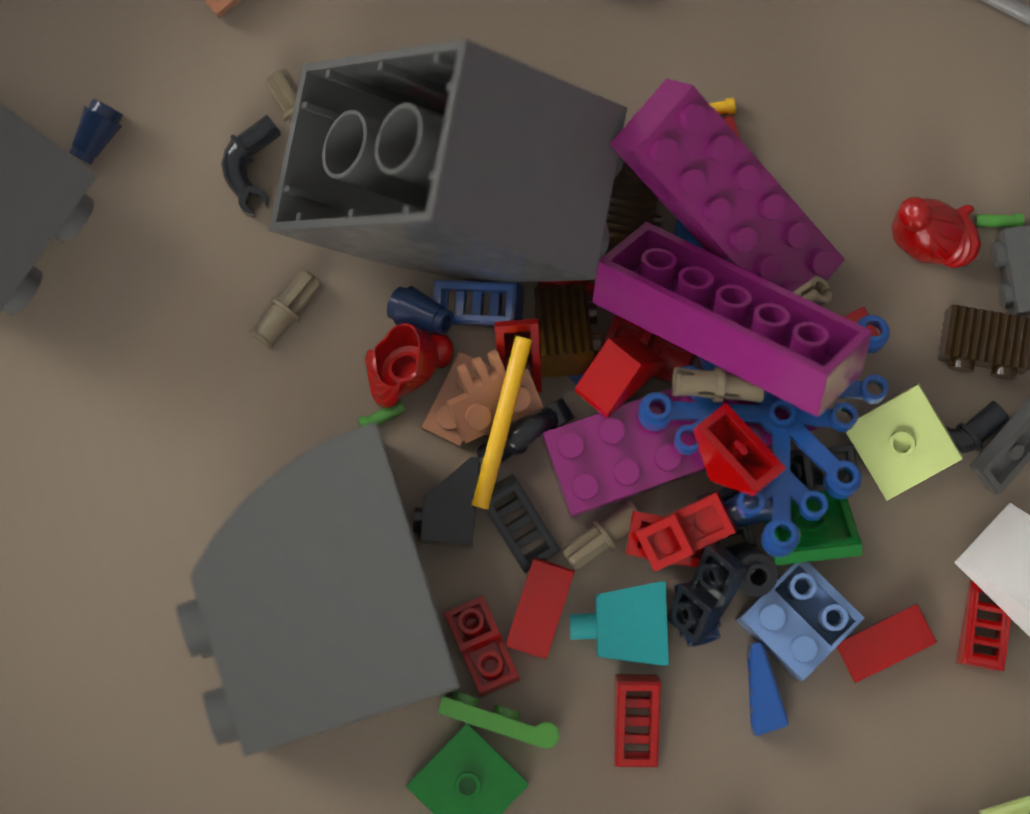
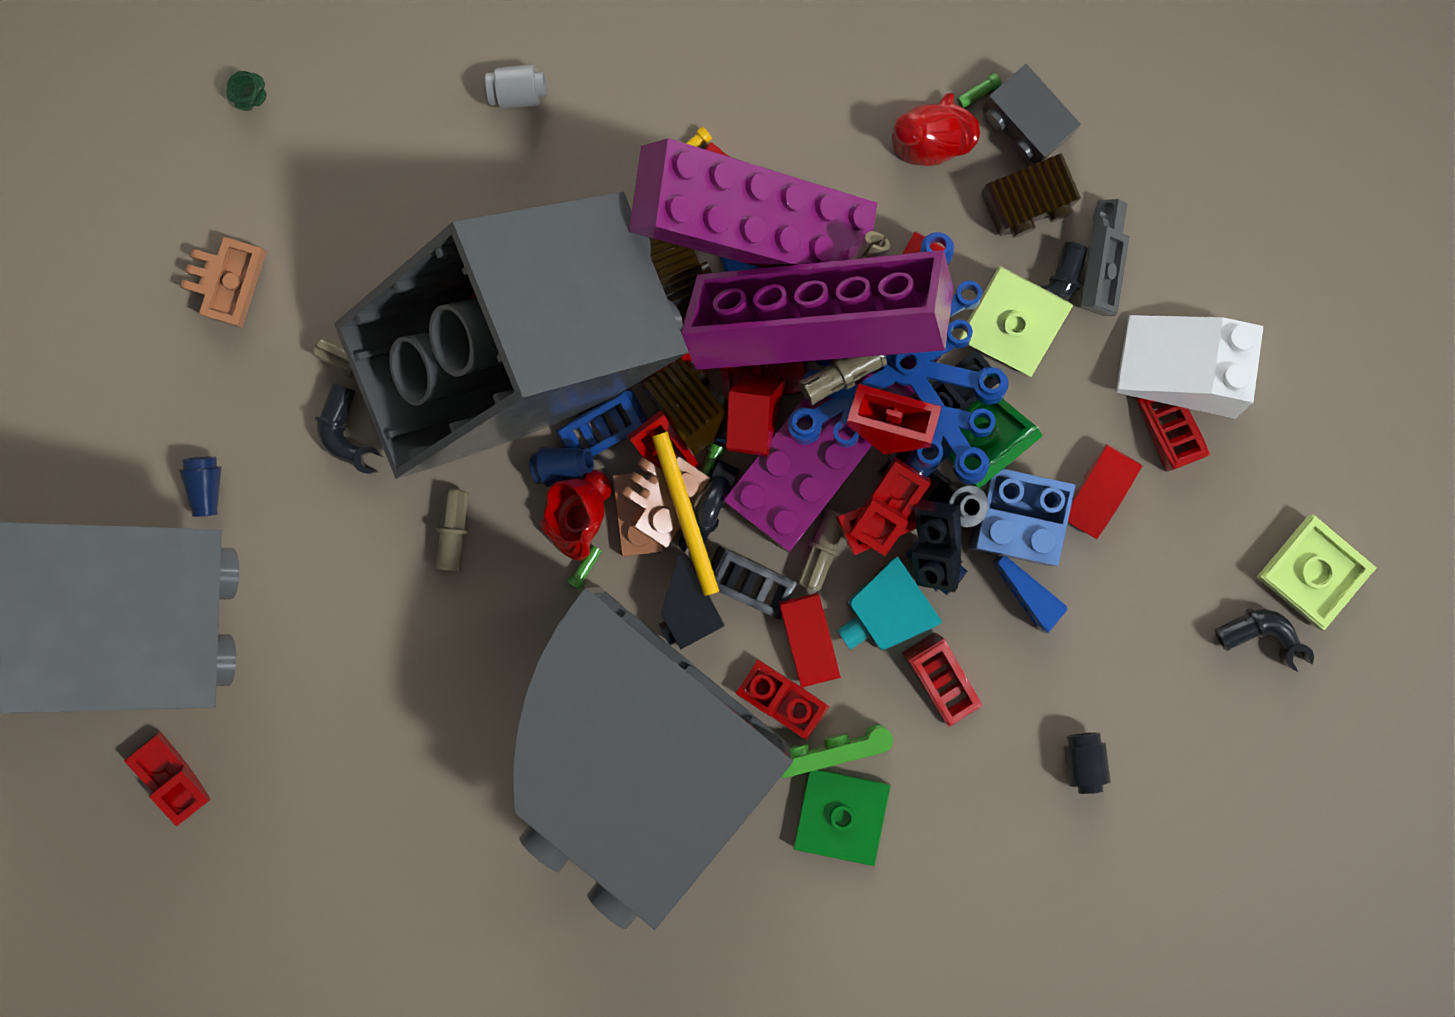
camera: 25 degrees left, 5 degrees up
(561, 389) = (712, 459): none -> bright green piece

